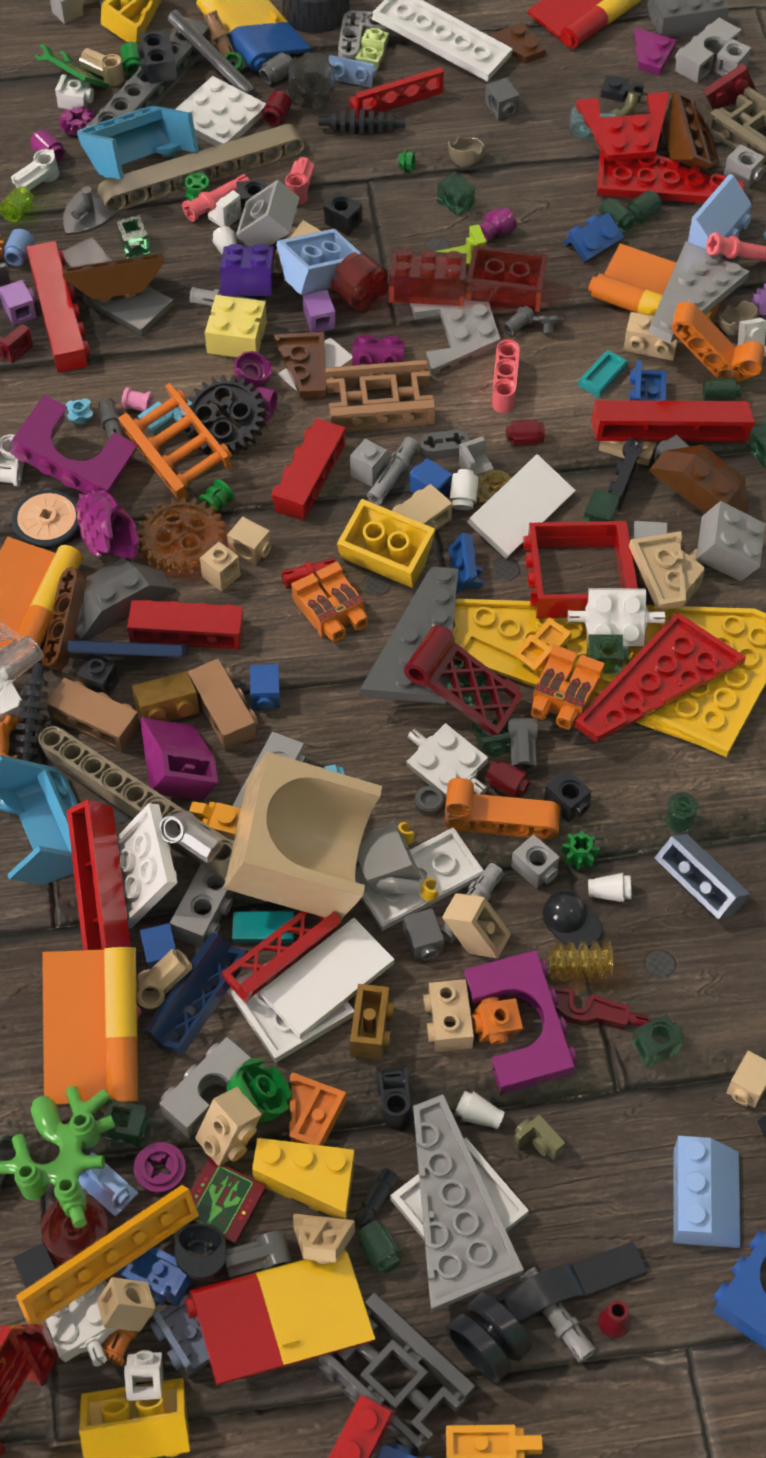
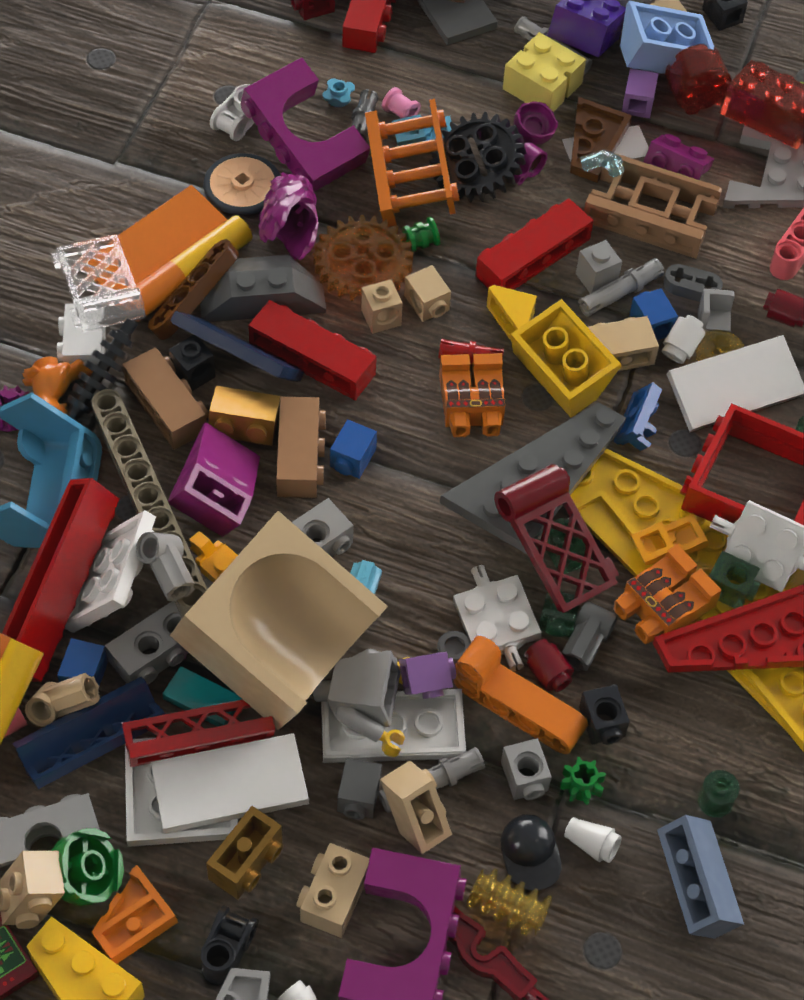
camera: 25 degrees right, 0 degrees up
(321, 525) = (510, 307): none -> yellow slope
(328, 375) = (604, 159): none -> clear light blue arm
(426, 827) = (427, 674): none -> medium lavender brick
(496, 1020) = (391, 917): orange brick -> none

